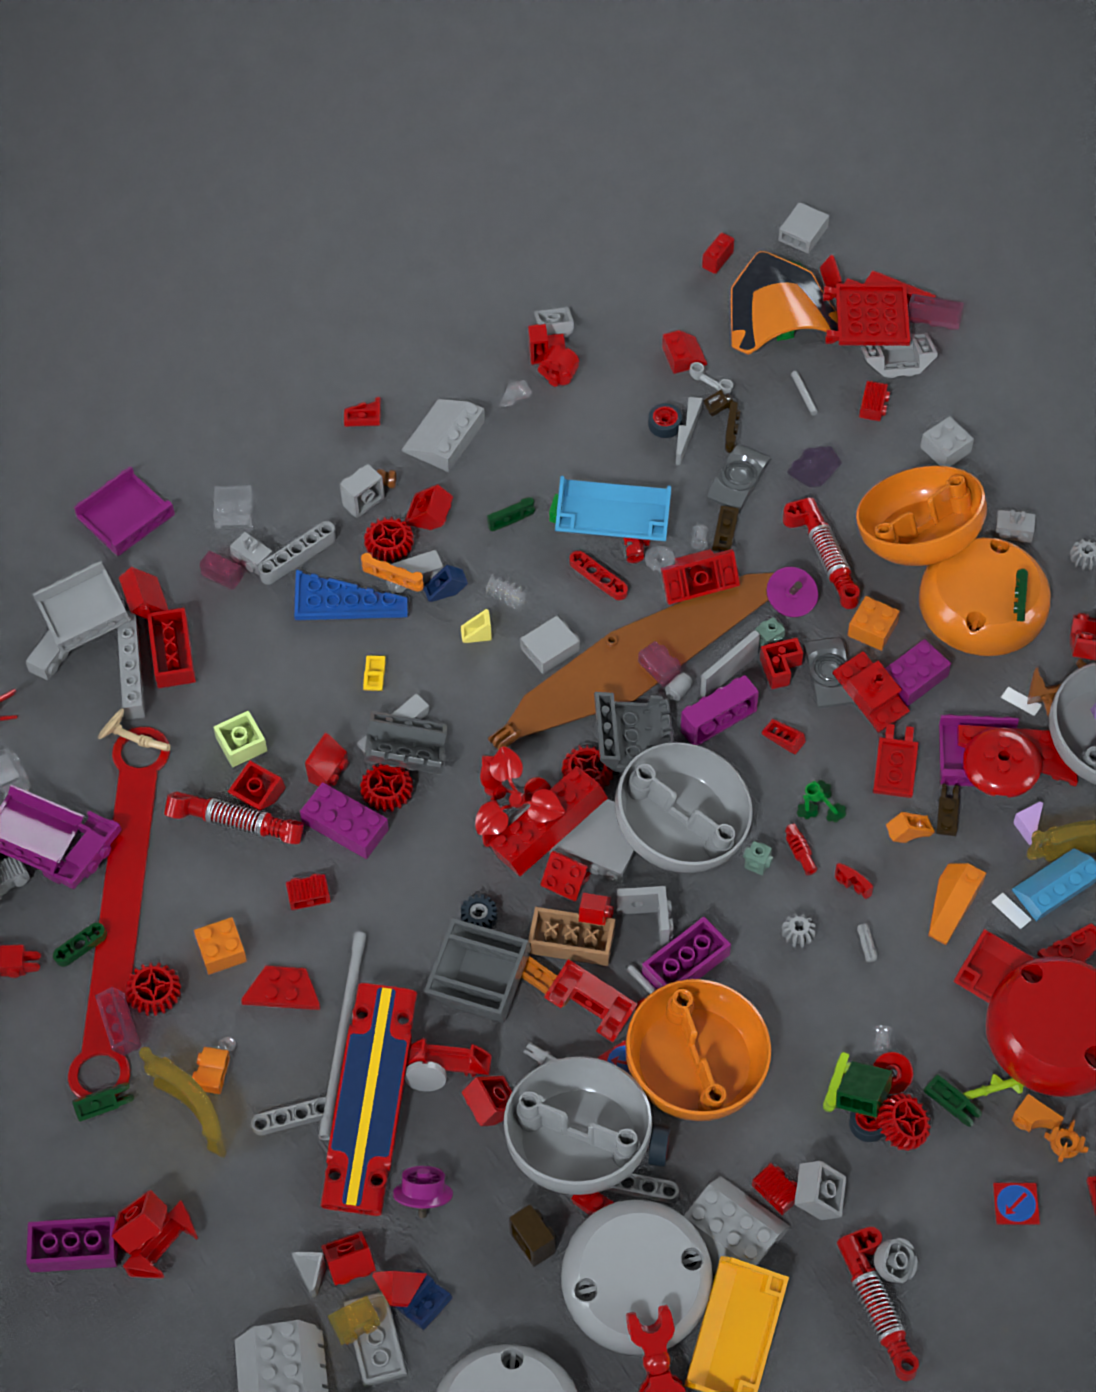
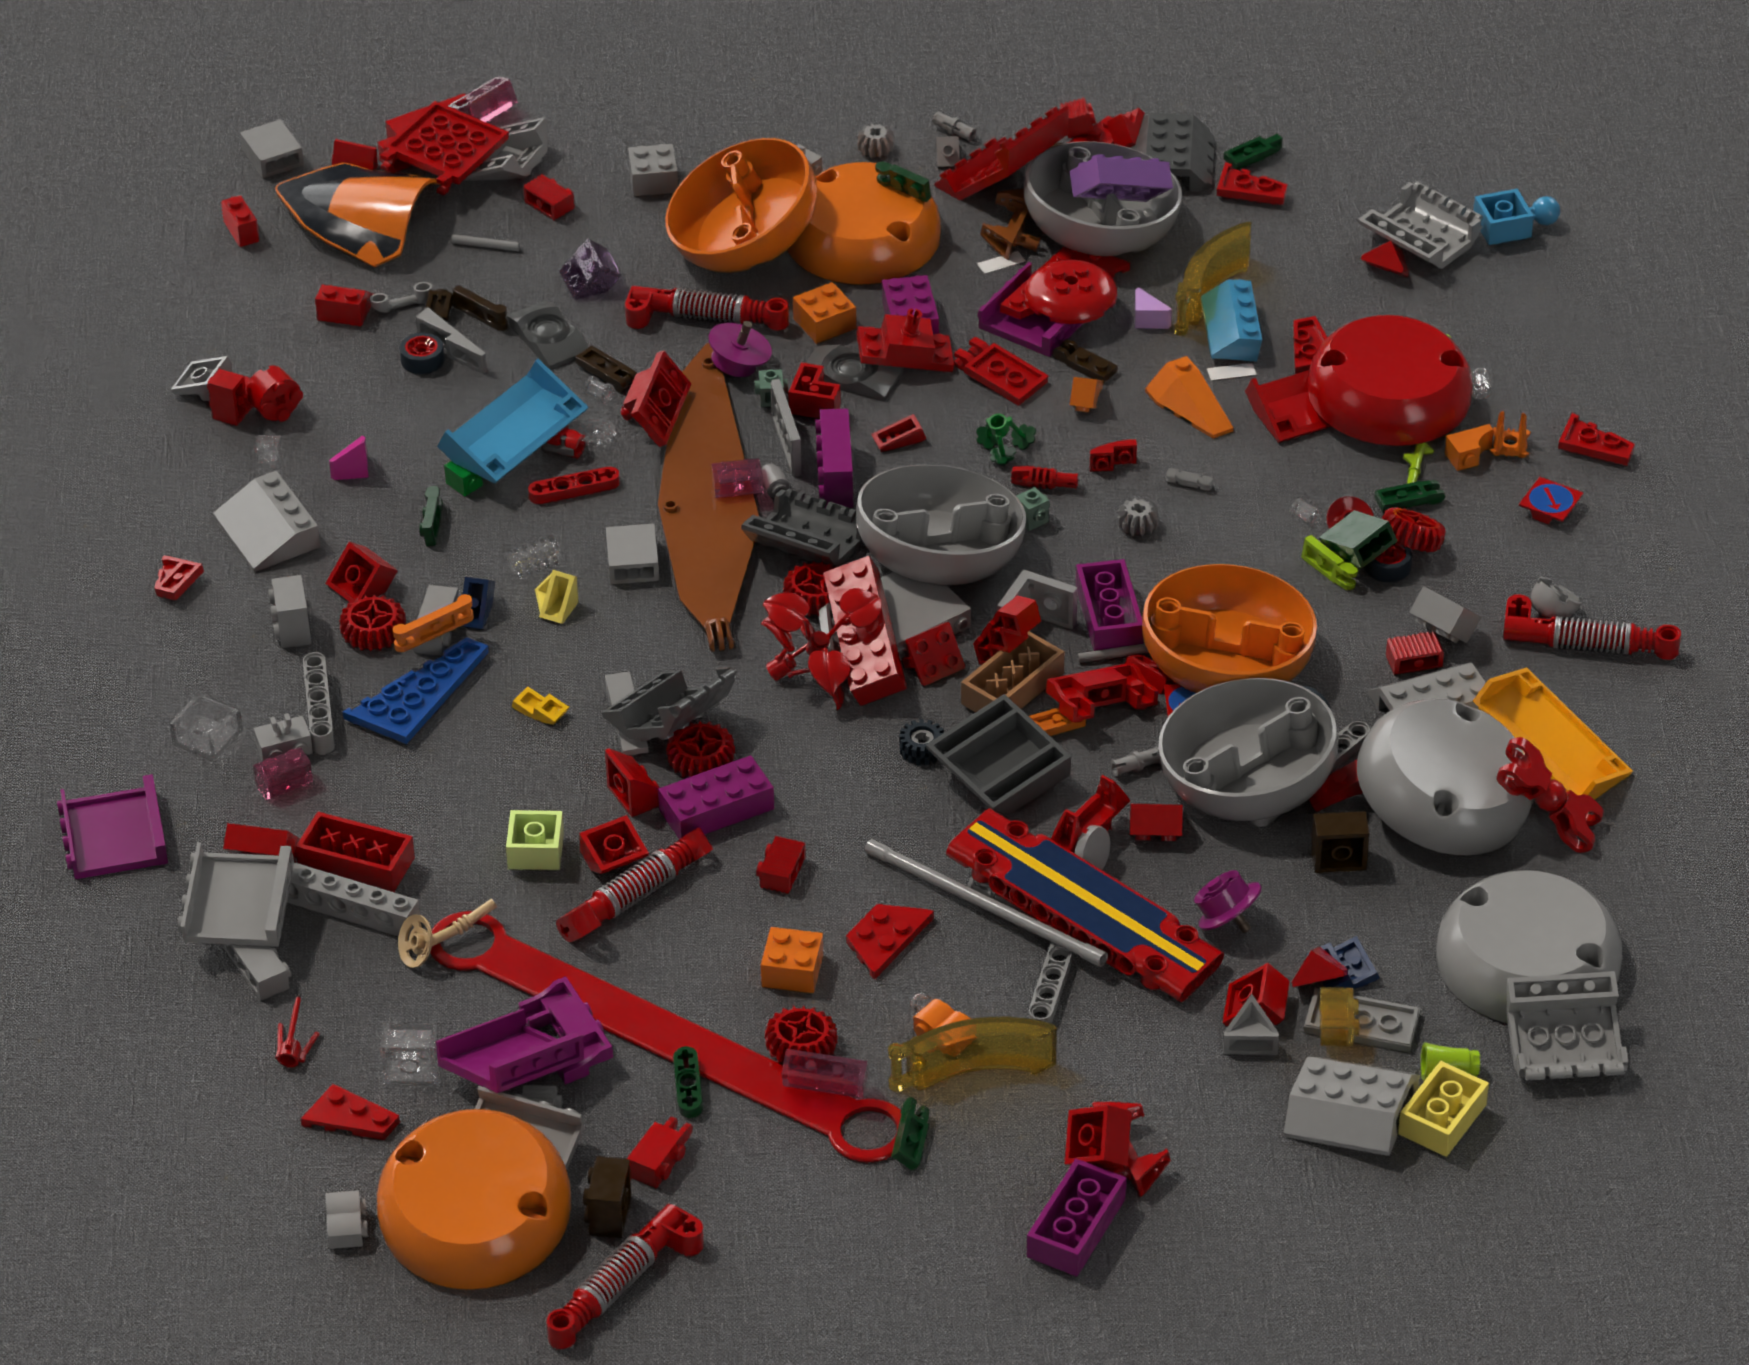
camera: 60 degrees left, 15 degrees down
(534, 443) = (351, 461): none -> dark pink slope

